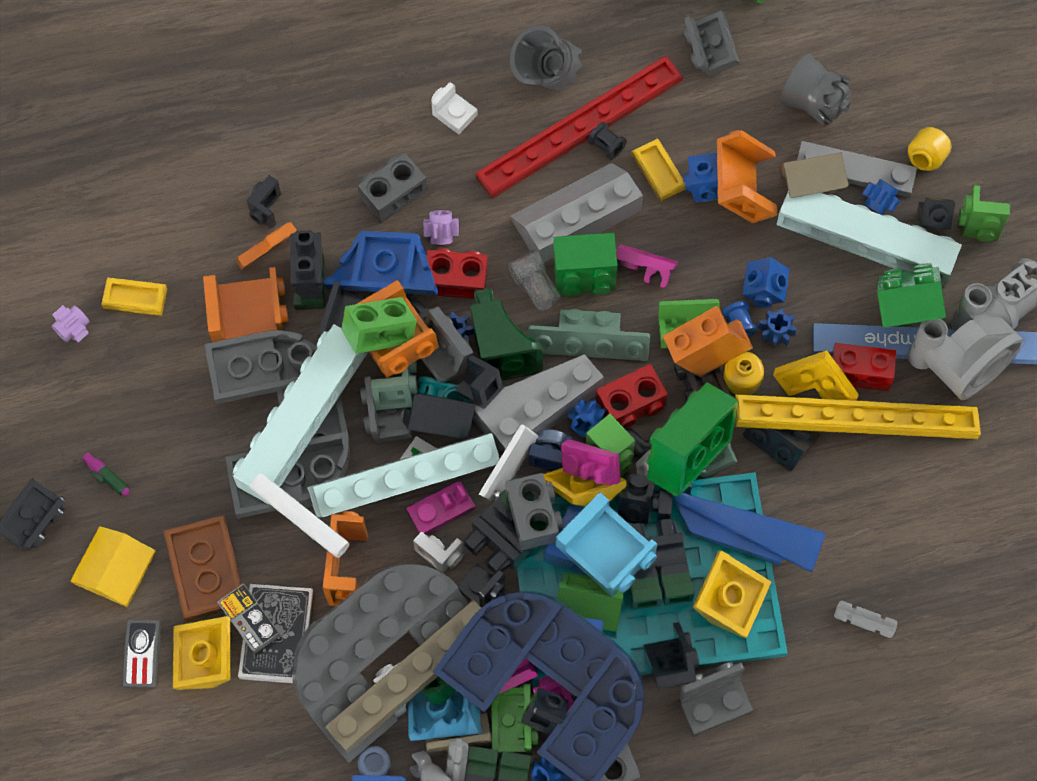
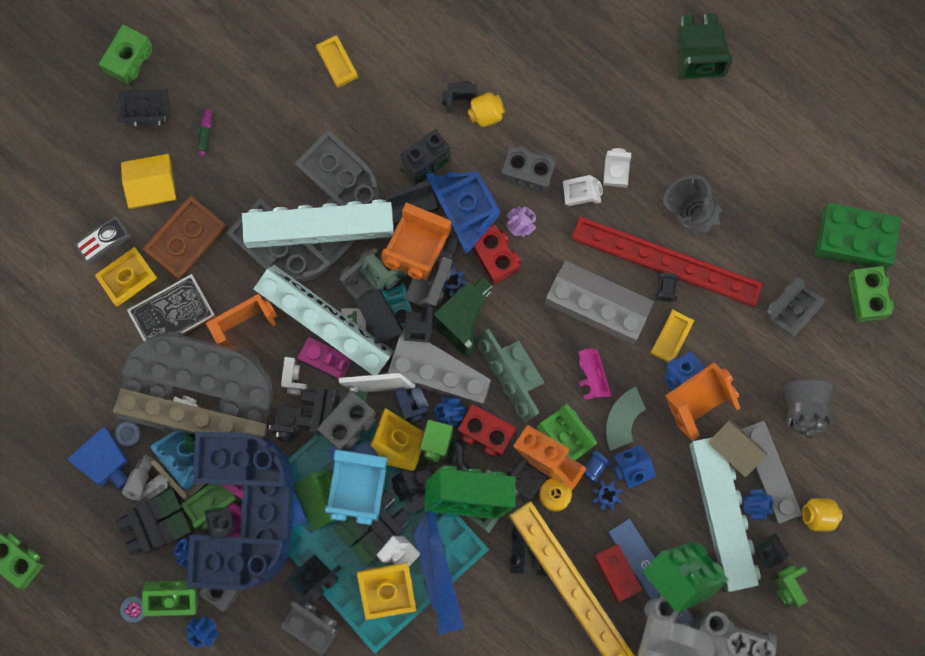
camera: 55 degrees right, 10 degrees up
(70, 323) = (287, 36): lavender gear -> none
(244, 306) = (375, 135): orange panel -> none
(249, 618) = (166, 289): tile -> none
(268, 244) = (426, 118): orange tile -> none
(299, 515) = (241, 274): white piece -> none
(300, 186) = (486, 109): none -> yellow head
(378, 324) = (405, 235): bright green brick -> none
(451, 153) = (582, 190): none -> white bracket
(531, 274) = (529, 304): clear piece -> none
(585, 264) = (557, 335): green brick -> none
(590, 462) = (410, 436): dark pink plate -> none
(701, 554) = (399, 551): none -> white bracket
(708, 267) = (621, 419): none -> sand green tile
(816, 372) = (587, 547): yellow tile -> none

